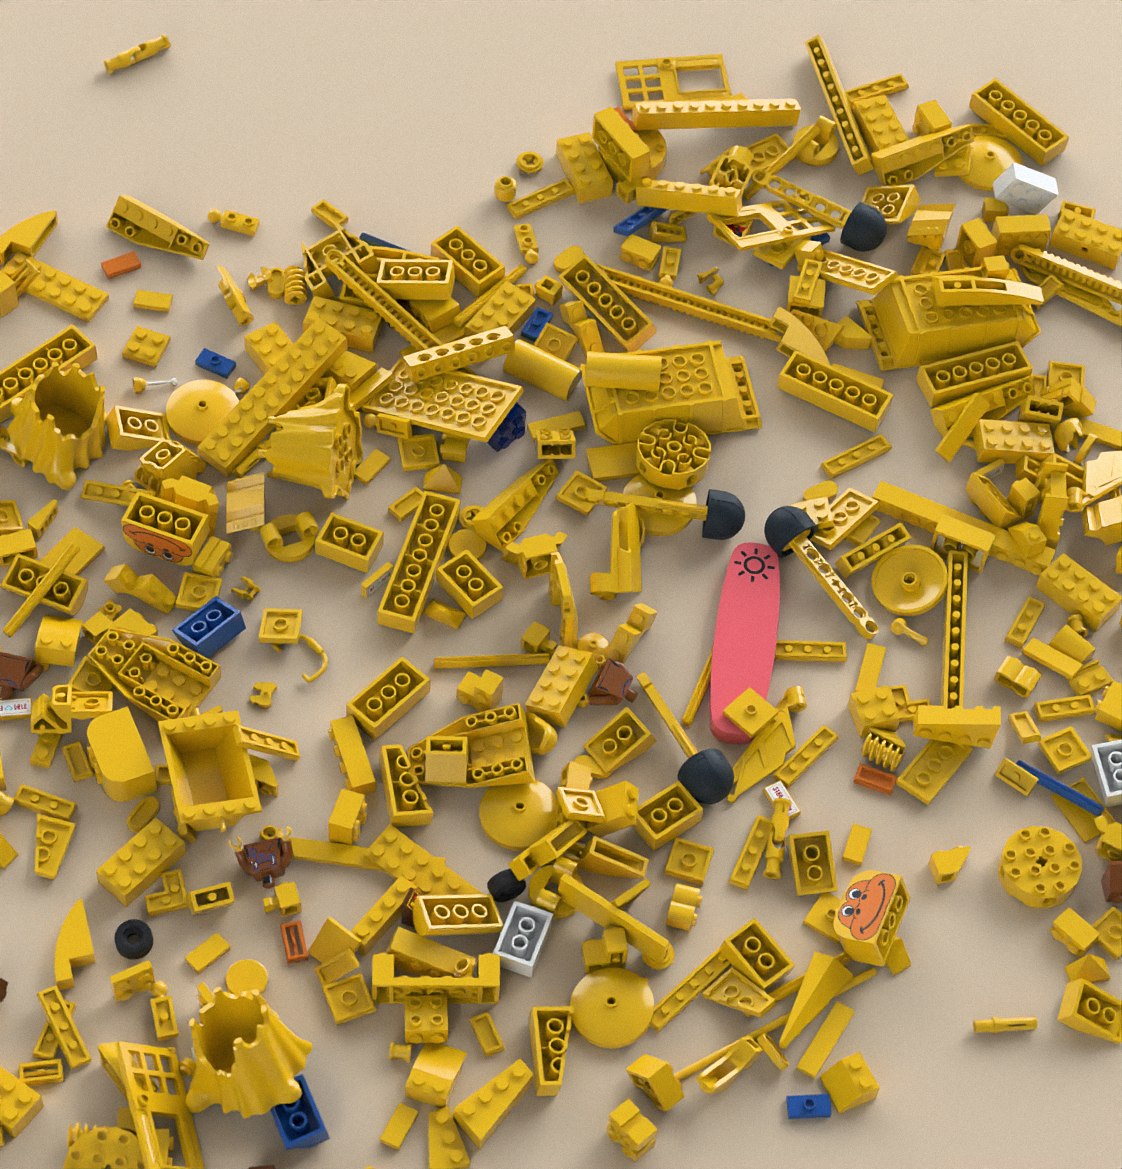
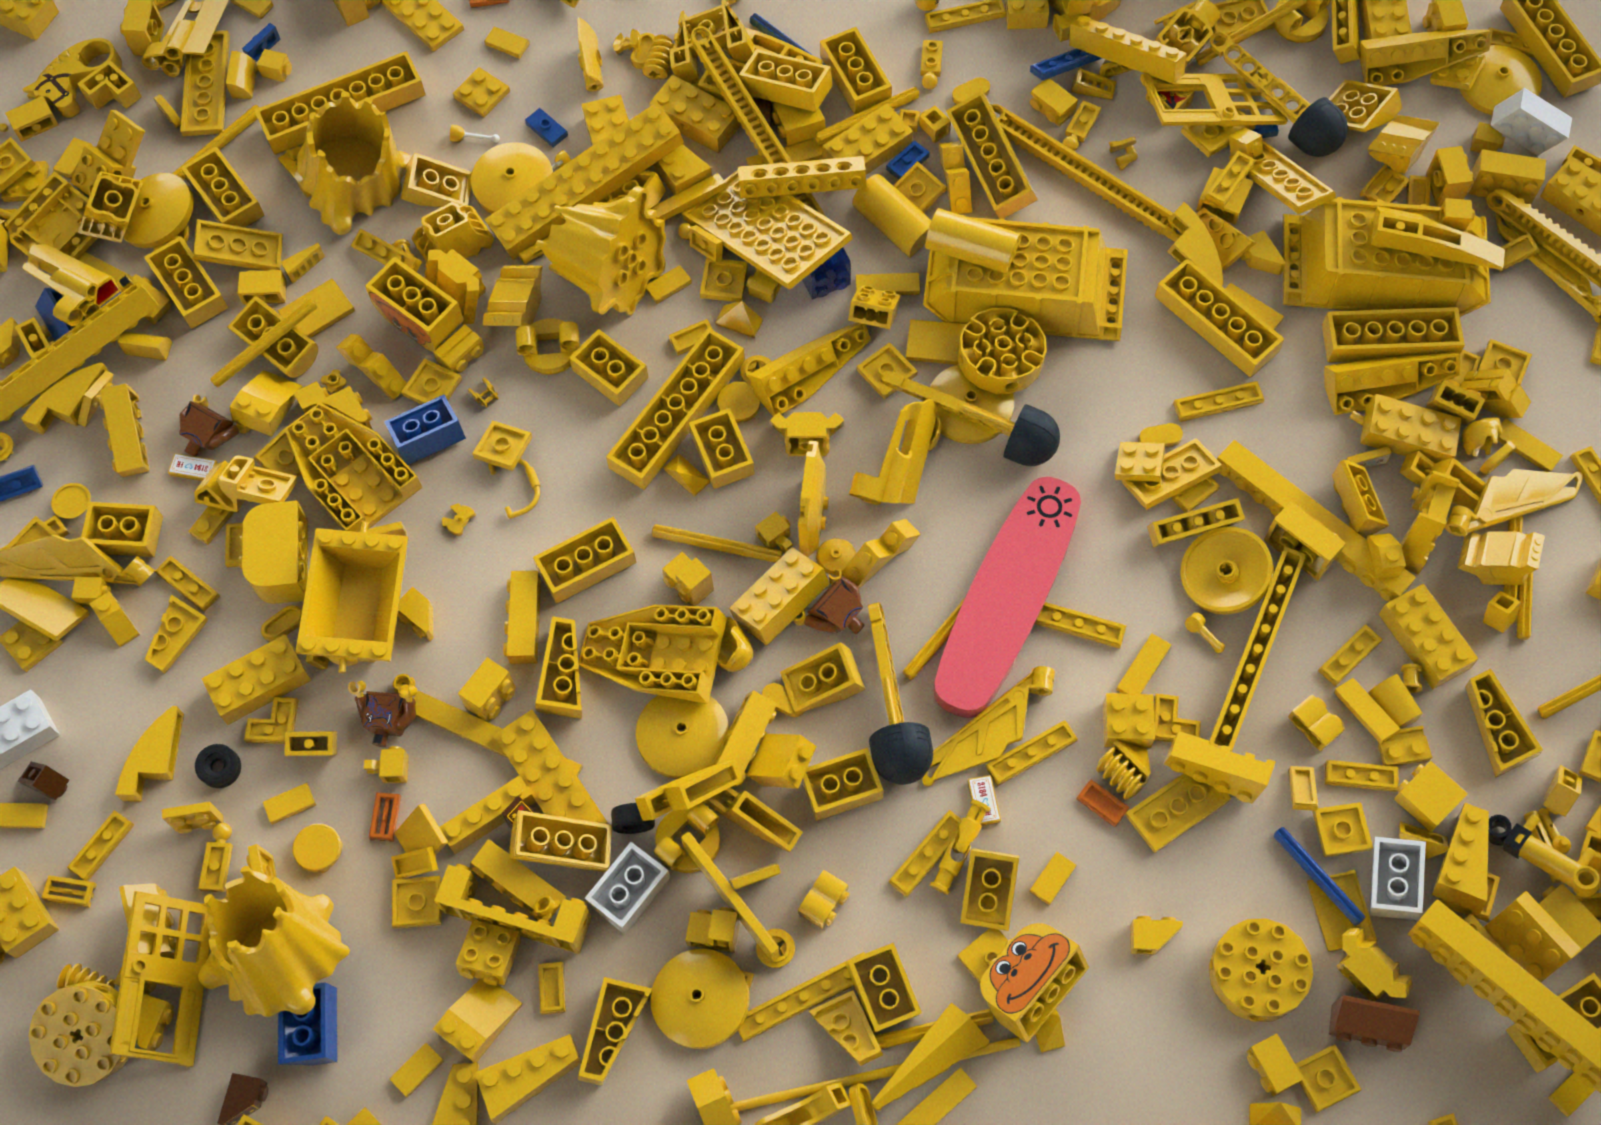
camera: 25 degrees right, 10 degrees up
(63, 1027) = (106, 847): yellow tile -> none
(266, 743) = (429, 580): yellow tile -> none
(376, 580) = (622, 418): tile -> none
(400, 1052) = (448, 982): yellow bush -> none
(446, 759) = (615, 653): yellow slope -> none
(580, 804) = (743, 748): yellow tile -> none
(689, 861) = (852, 843): yellow tile -> none
(750, 712) = (980, 685): yellow plate -> none
(788, 532) = (1103, 477): piece -> none
(962, 427) = (1354, 397): yellow tile -> none
(1016, 776) = (1271, 847): yellow plate -> none
(1023, 497) = (1398, 503): yellow brick -> none

